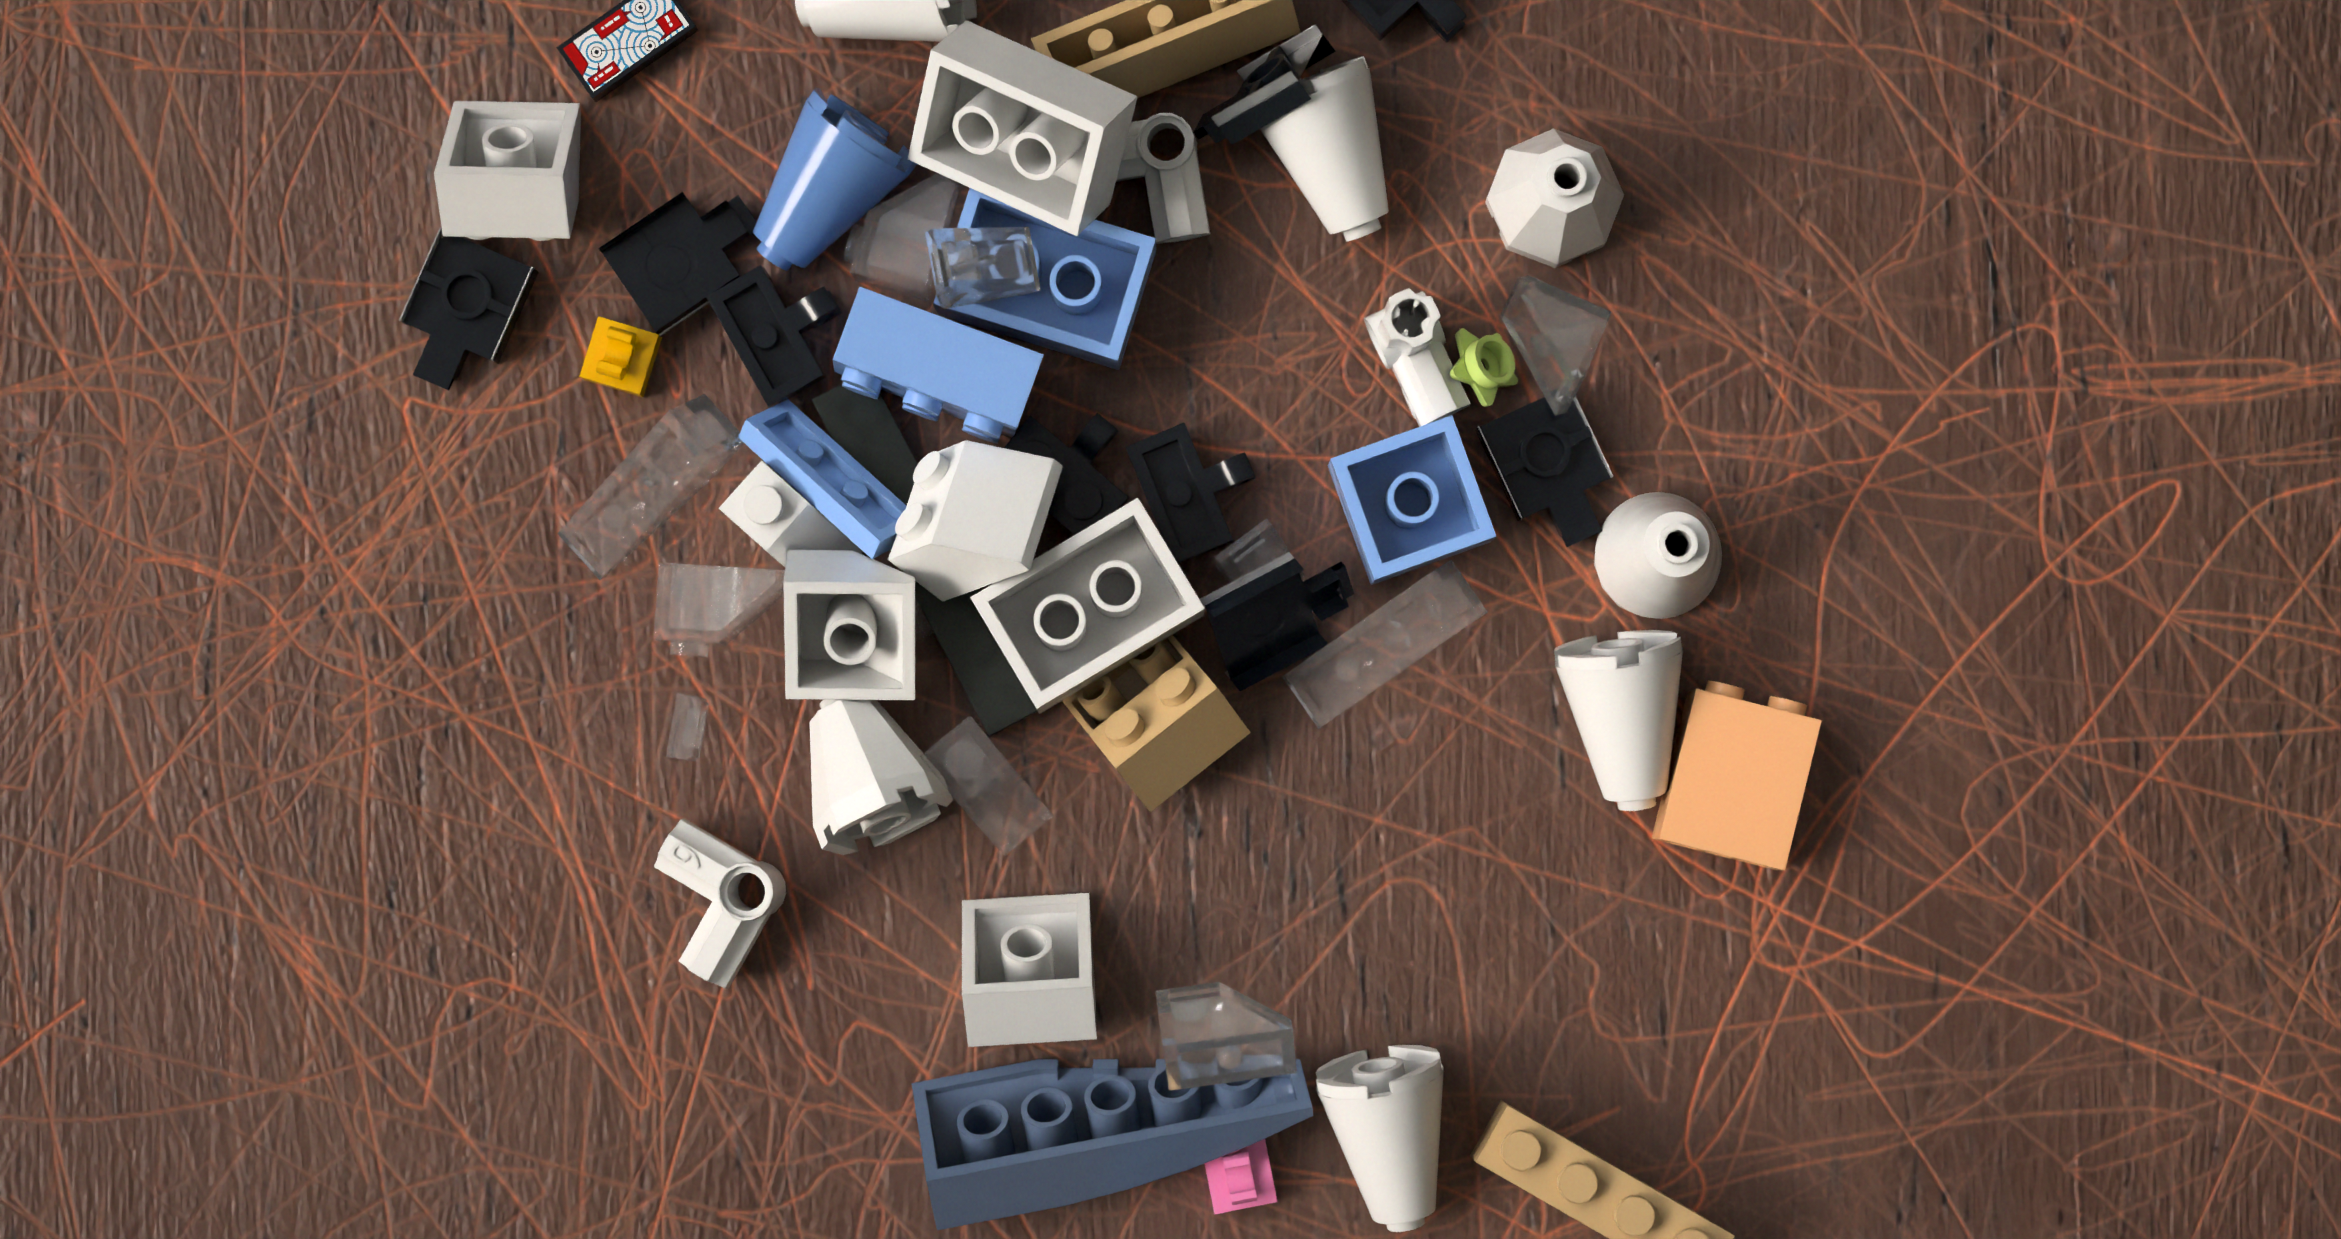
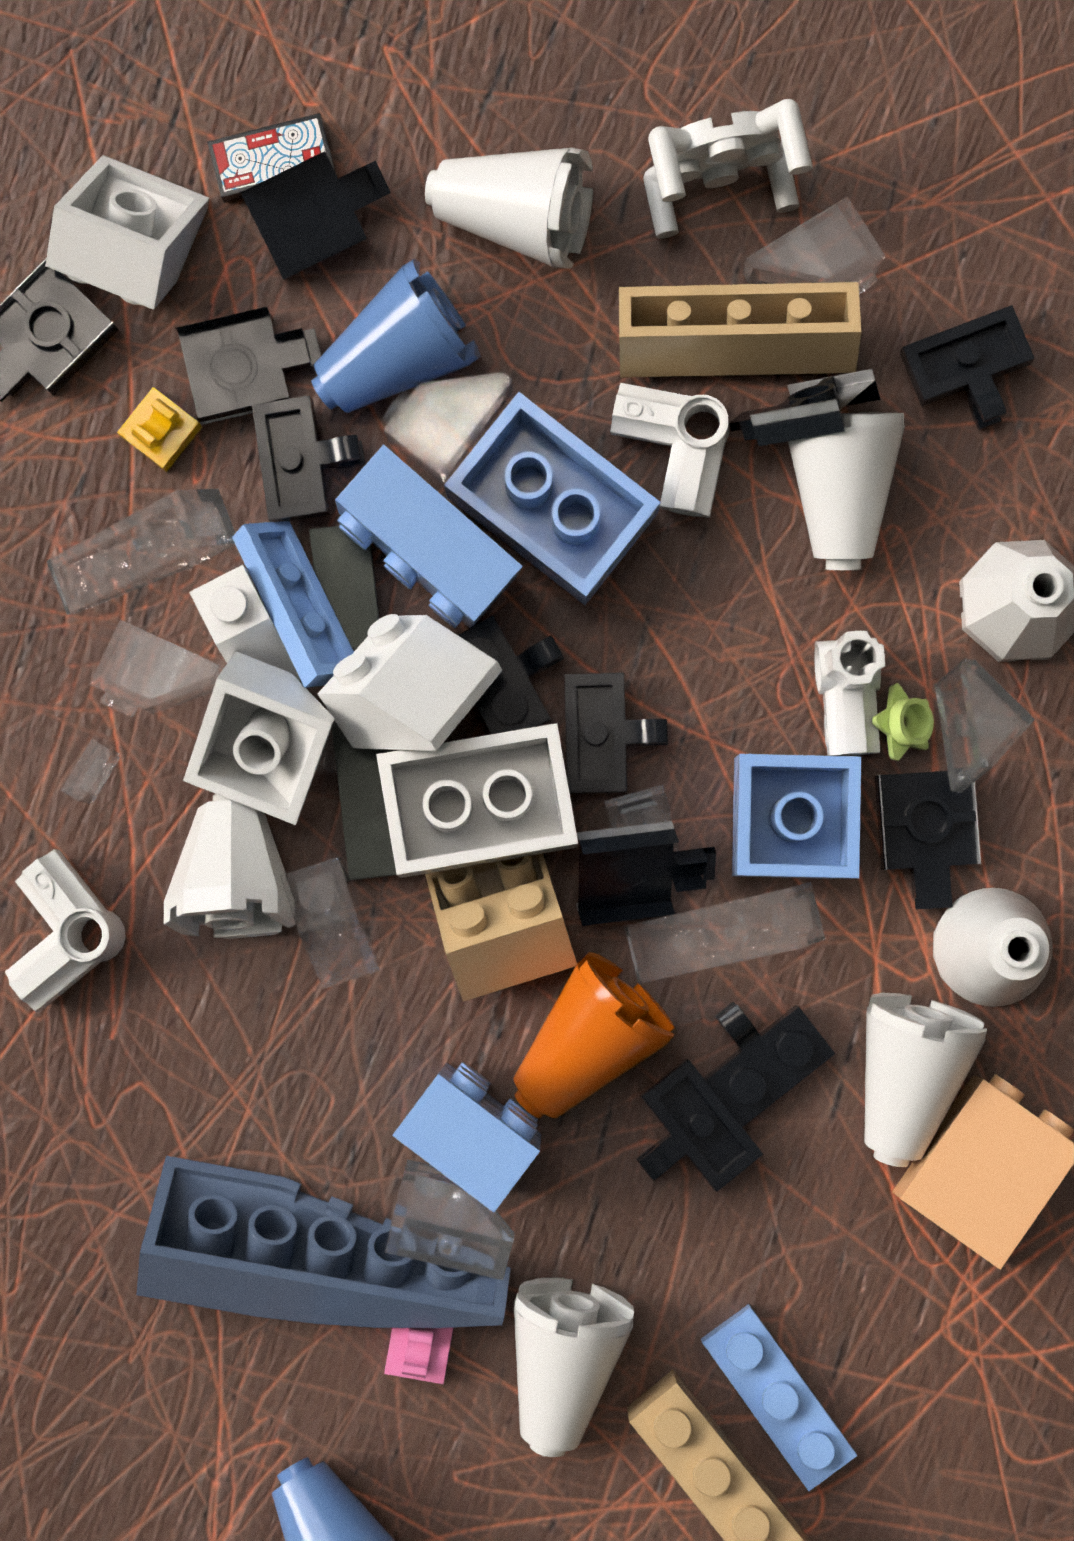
camera: 25 degrees right, 0 degrees up
(689, 78) = (310, 211): none -> black piece
(981, 264) = (497, 465): clear slope -> none
(1021, 127) = (580, 359): white brick -> none
(1028, 970) = (304, 1097): white slope -> none
(1209, 937) = (471, 1134): none -> light blue brick
(1290, 801) = (589, 1038): none -> orange cone
(1433, 849) = (697, 1128): none -> black plate
(1475, 757) = (766, 1061): none -> black plate
(1616, 1085) = (778, 1397): none -> light blue plate

